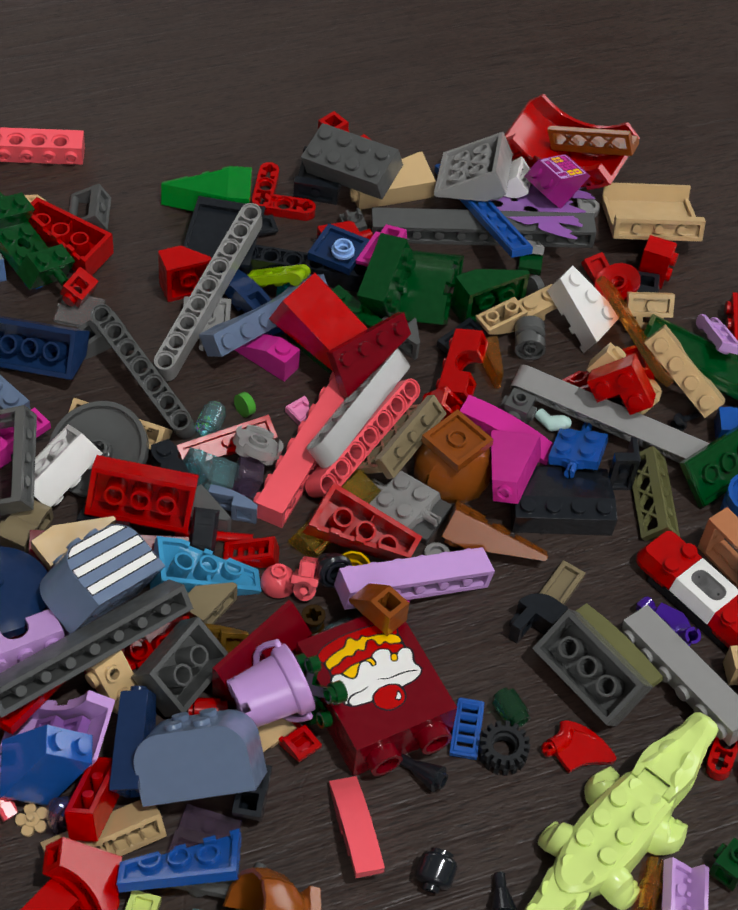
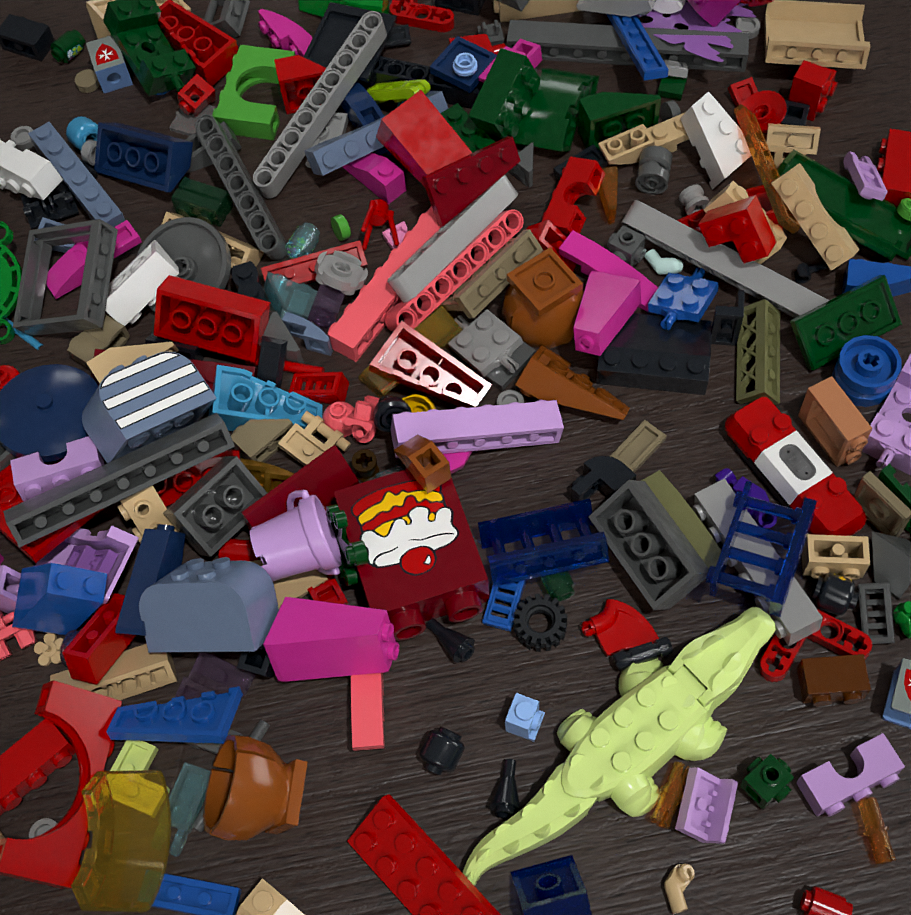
camera: 20 degrees right, 10 degrees up
(103, 385) = (202, 201): none -> clear green brick
(127, 259) = (250, 67): none -> bright green arch
(155, 227) = (284, 32): none -> dark pink slope
(252, 608) = (304, 446): none -> tan plate
(278, 392) = (377, 215): none -> red plant
(318, 778) = (329, 640): none -> dark pink slope
(501, 687) = (546, 558): none -> clear blue fence
(506, 832) = (524, 717): none -> light blue brick
(570, 362) = (693, 199): none -> light grey wheel
(602, 765) = (643, 653): none -> black axle
(716, 674) = (783, 568): none -> clear blue fence

